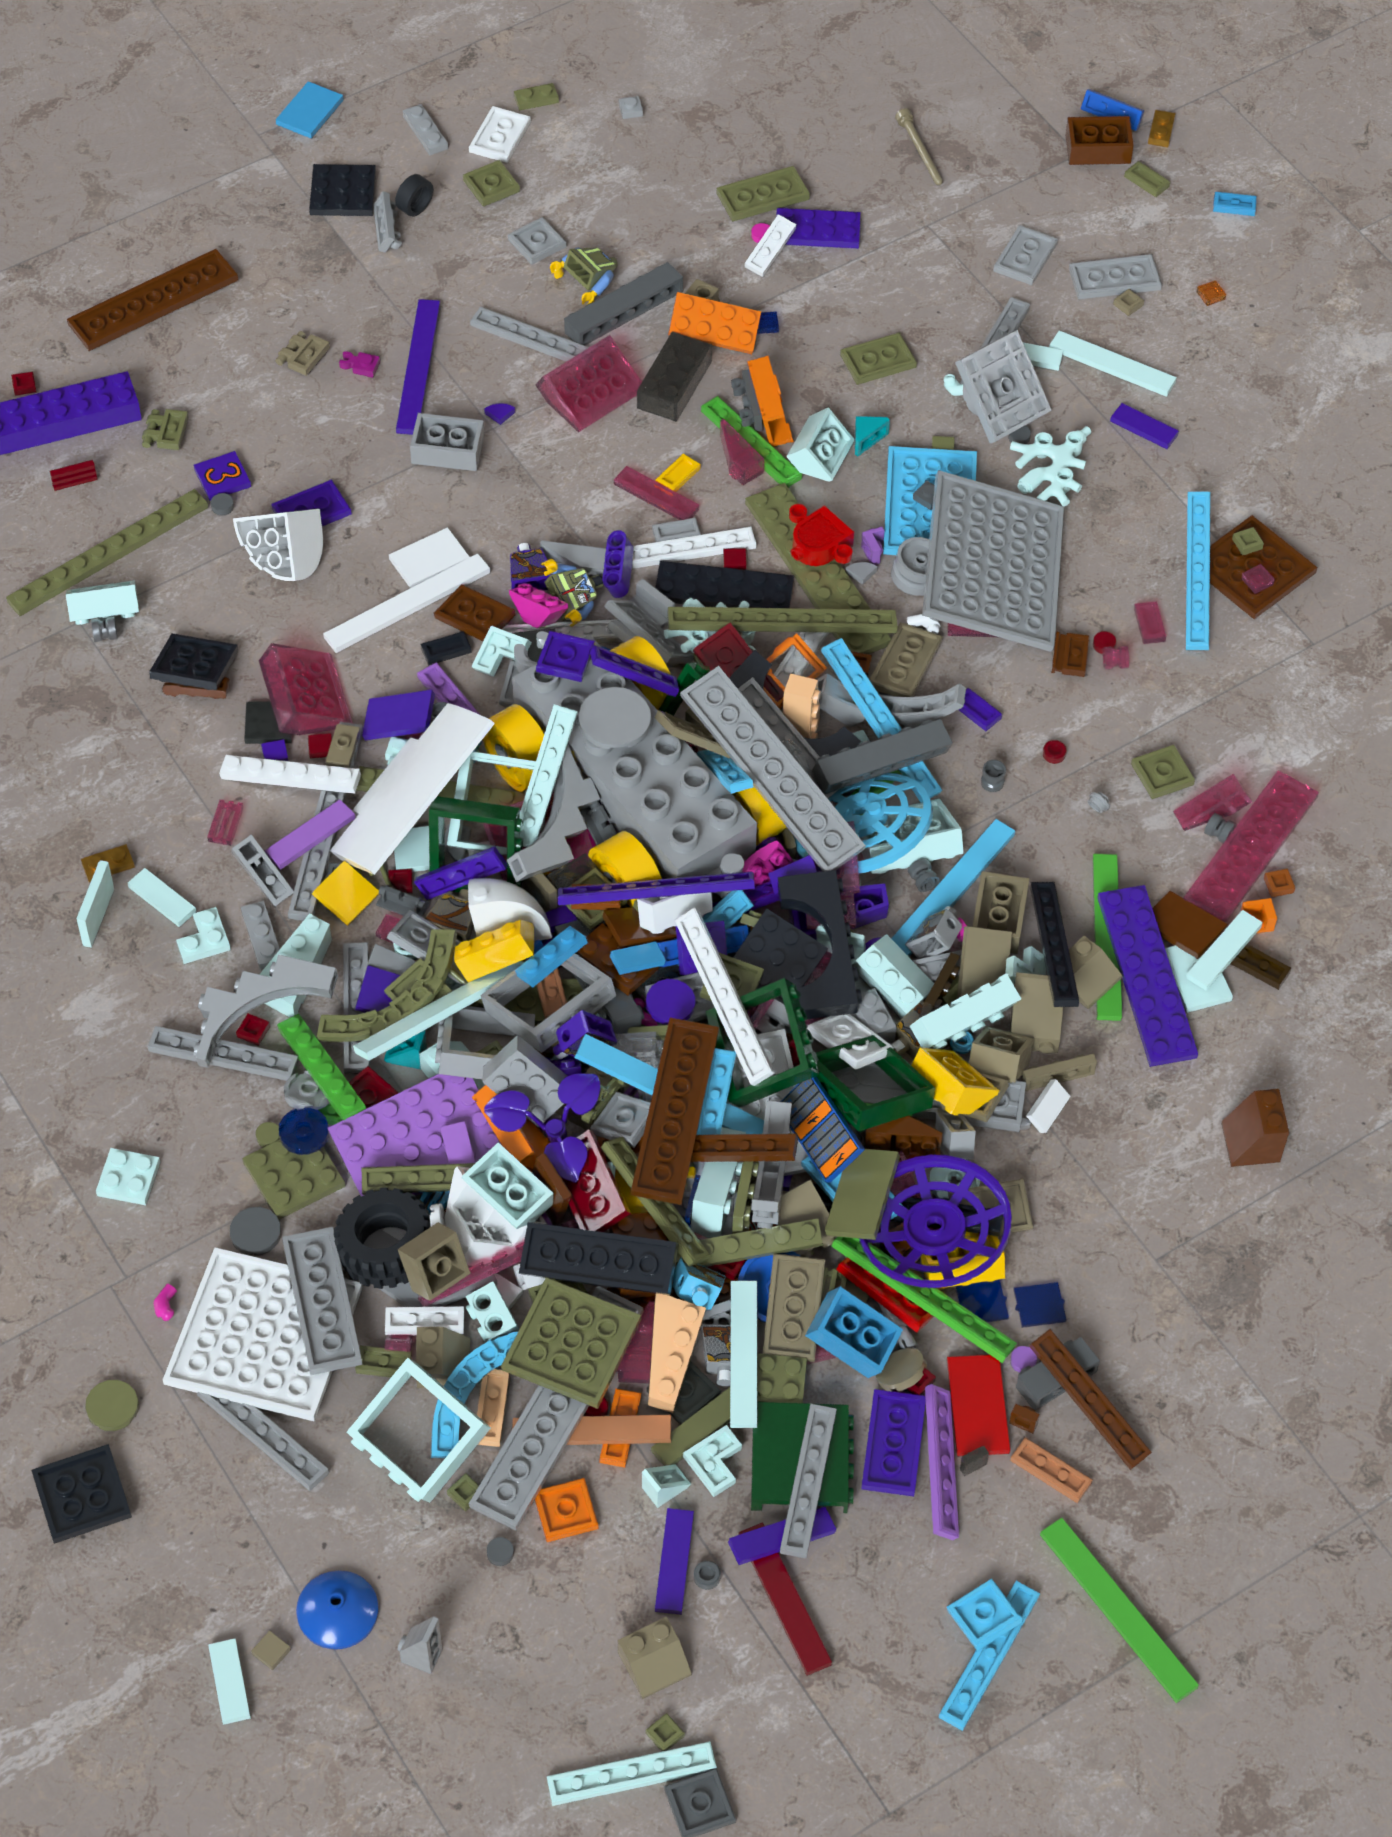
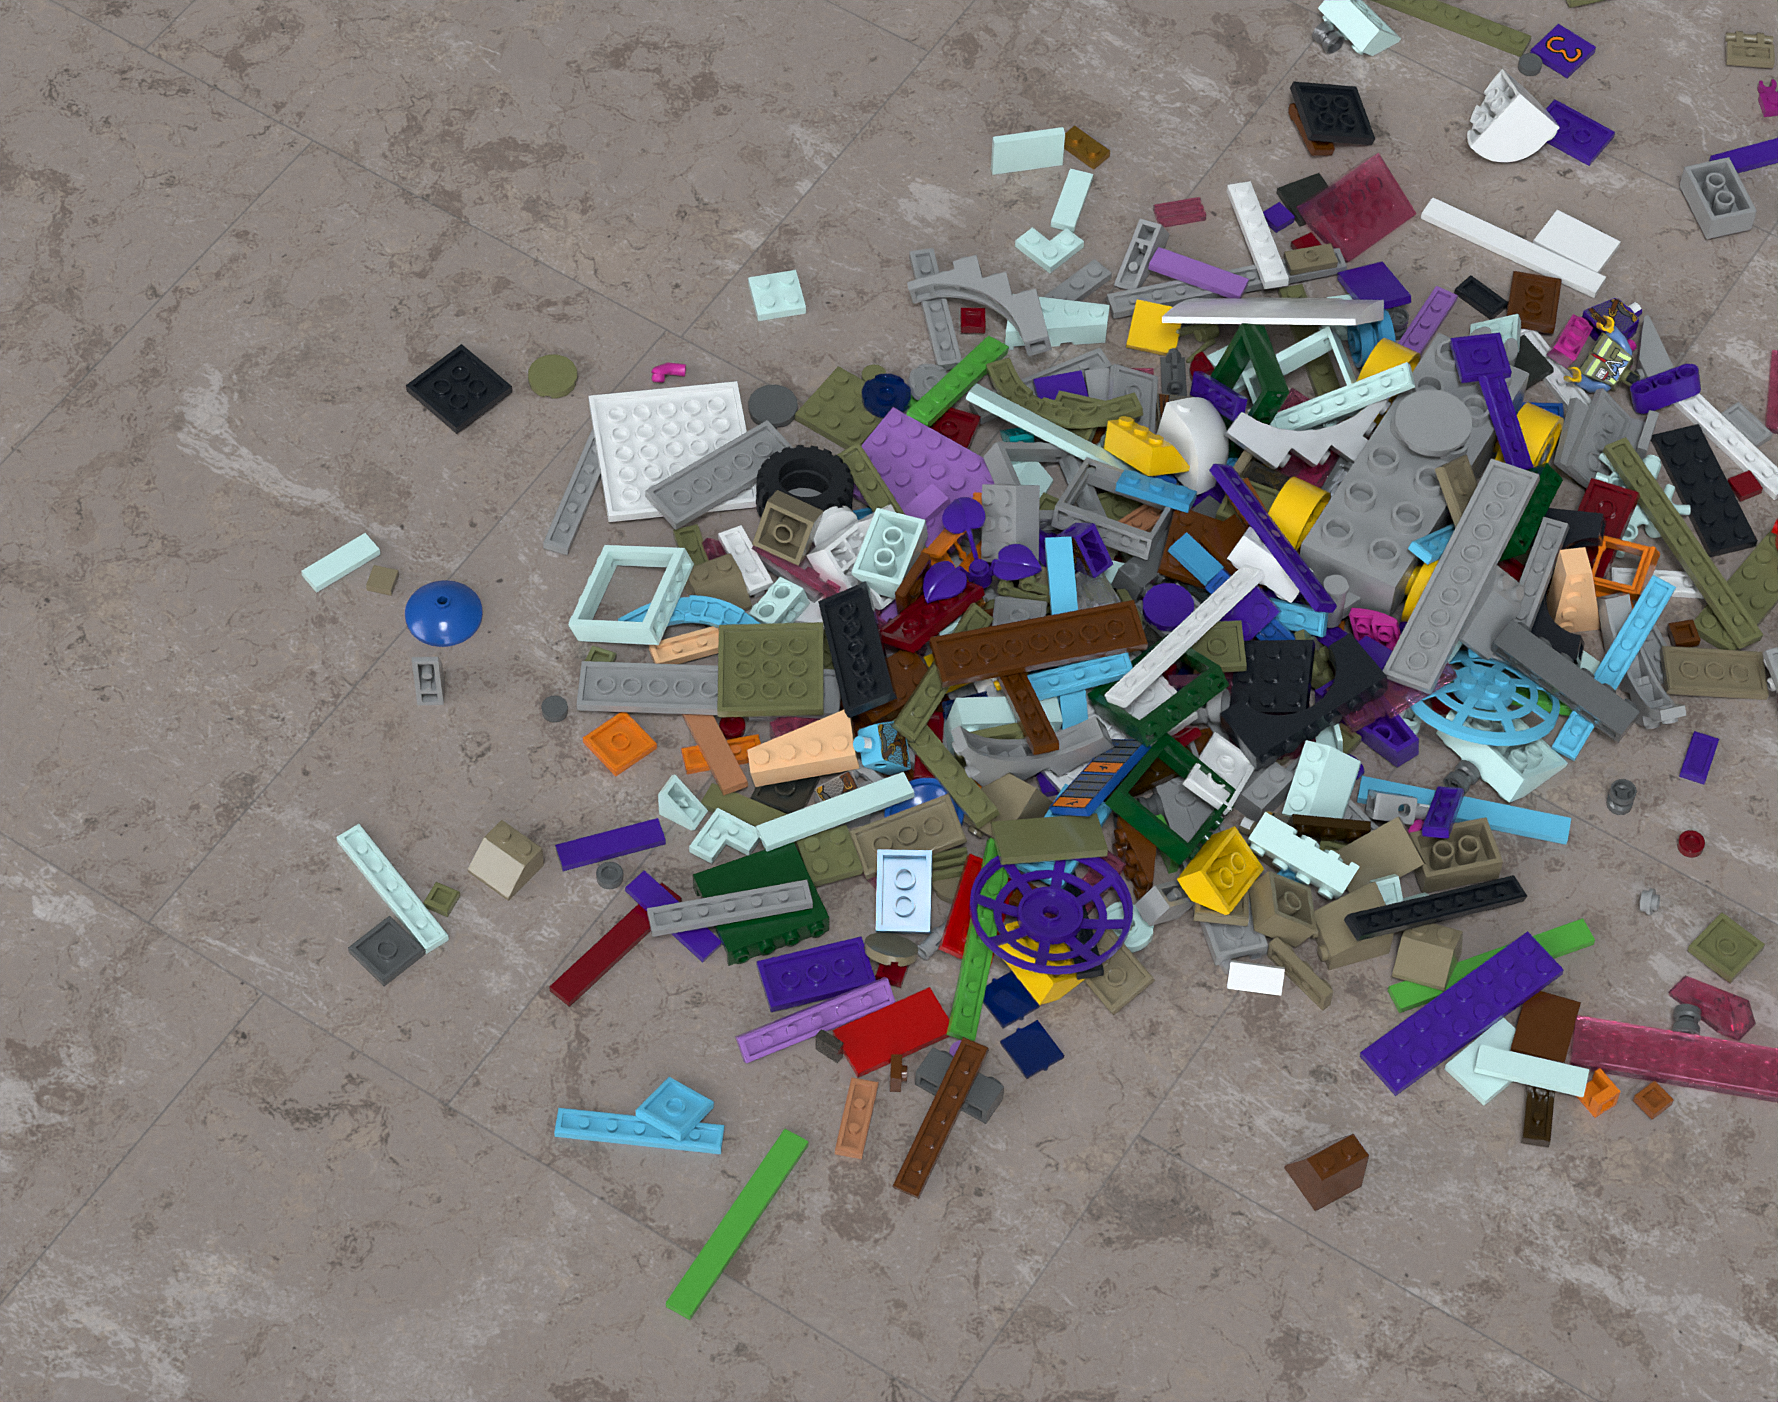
camera: 65 degrees right, 0 degrees up
(961, 899) = (1443, 812): none -> dark purple tile

